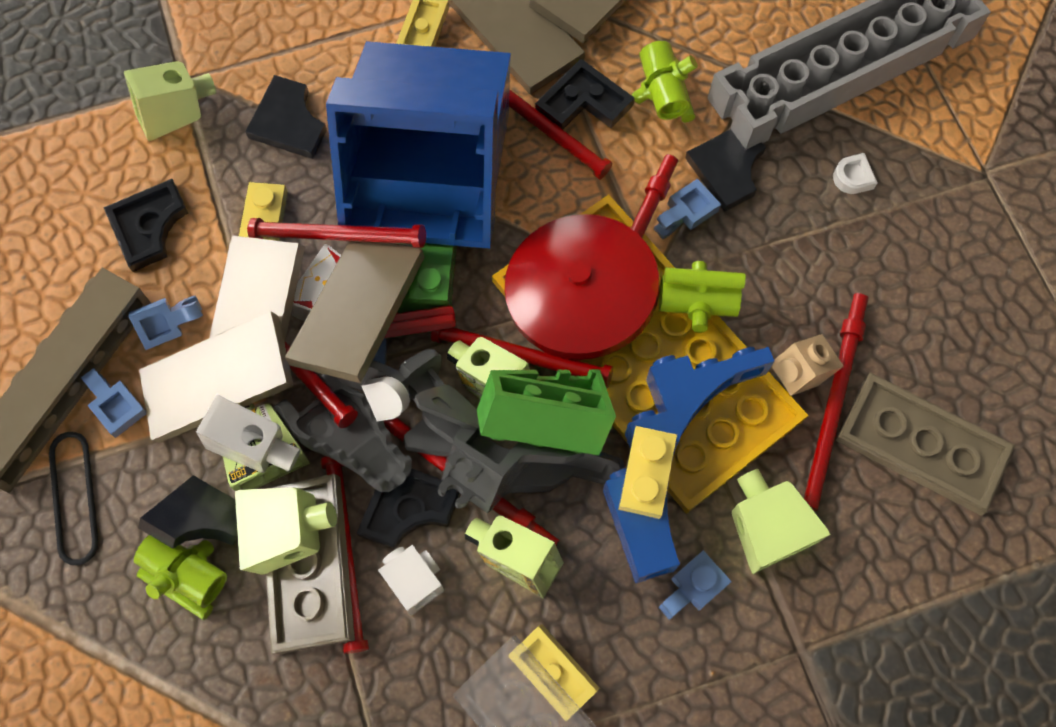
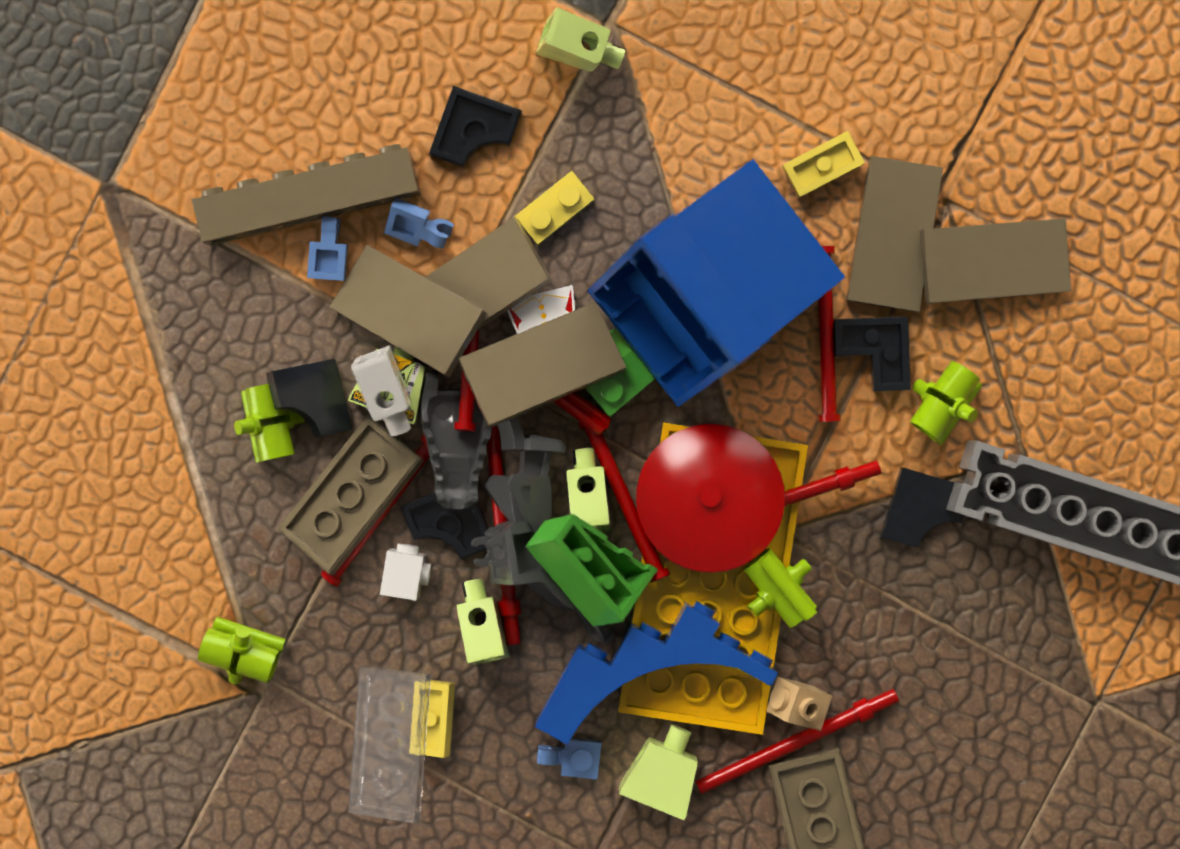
camera: 50 degrees right, 20 degrees up
(56, 503) = (235, 283): black piece -> none
(279, 527) = (354, 459): yellowish green torso -> none
(284, 119) = (647, 138): black tile -> none
(386, 397) = (499, 448): white tile -> none
(416, 235) = (539, 226): red bar -> none
(647, 472) = (608, 672): light yellow plate -> none
(688, 206) = (855, 512): medium blue plate -> none
(854, 175) = (1001, 606): white tile -> none

